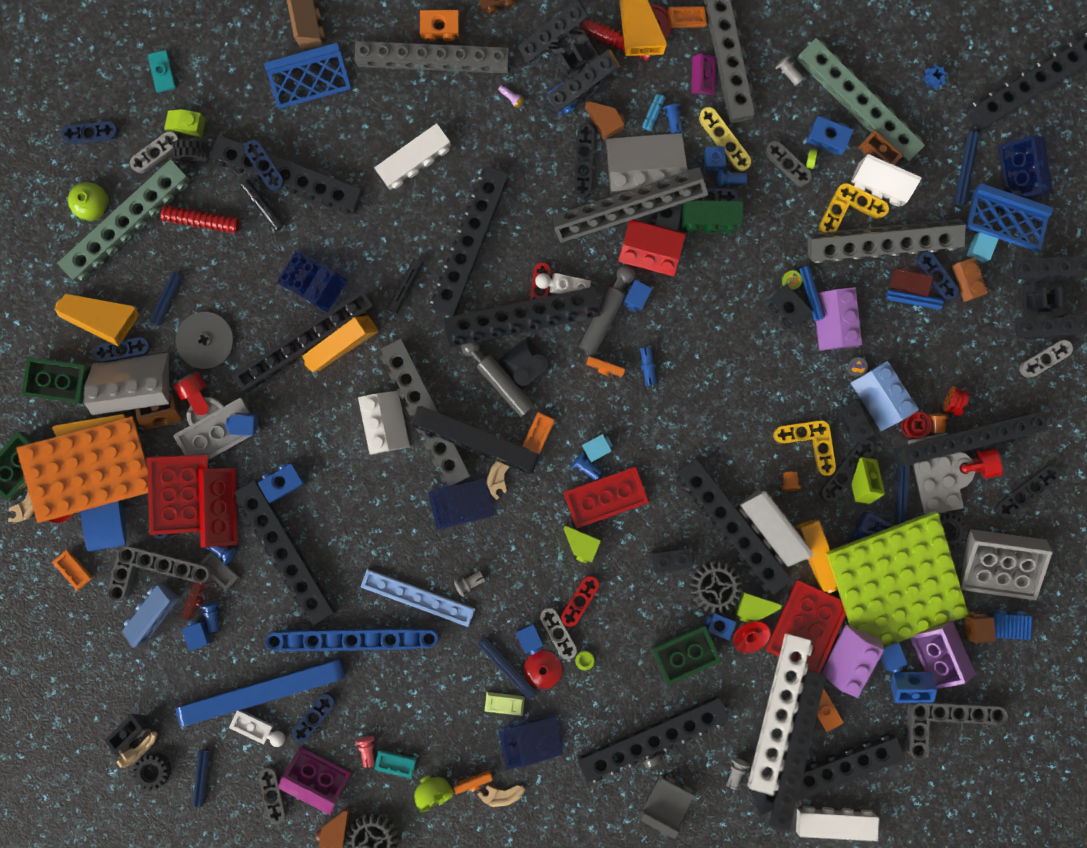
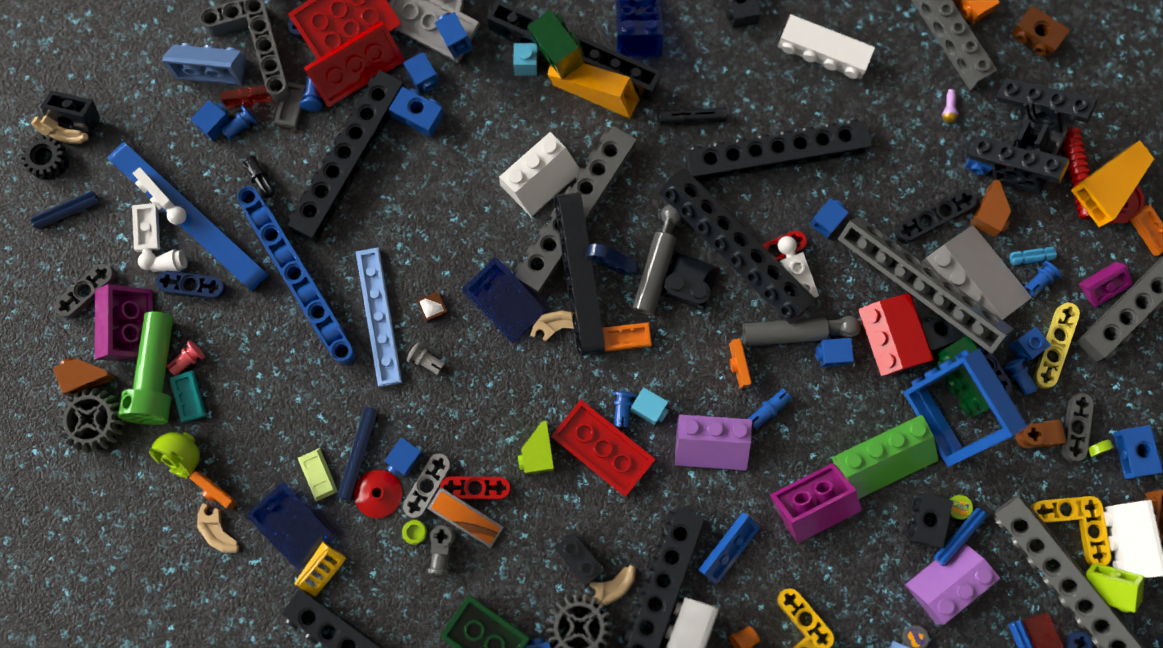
camera: 55 degrees right, 10 degrees down
(239, 706) = (175, 214): none -> white plate
(253, 462) = (421, 72): none -> blue brick
(261, 624) = (258, 176): none -> black axle
(287, 723) = (171, 261): none -> white cone
(289, 380) = (525, 59): none -> medium azure brick
(300, 357) = (556, 43): none -> dark green brick
(381, 793) = (146, 401): none -> bright green piece
(433, 556) = (431, 306): none -> tile
(479, 410) = (612, 259): none -> dark blue beam
(540, 237) = (829, 217): none -> blue brick
(564, 737) = (318, 557): none -> yellow slope
(596, 620) = (465, 517): none -> slope
(609, 649) = (441, 551): none -> dark grey connector
(647, 420) = (713, 442): none -> medium lavender slope
(704, 551) = (612, 590): none -> tan piece
(725, 454) = (729, 548): none -> blue plate
(729, 308) = (888, 456): none -> bright green slope
(730, 375) = (816, 502): none -> magenta slope
(733, 216) = (993, 392): none -> blue window
(779, 189) = (1044, 435): none -> dark orange piece
(907, 213) = (1117, 586): none -> lime slope

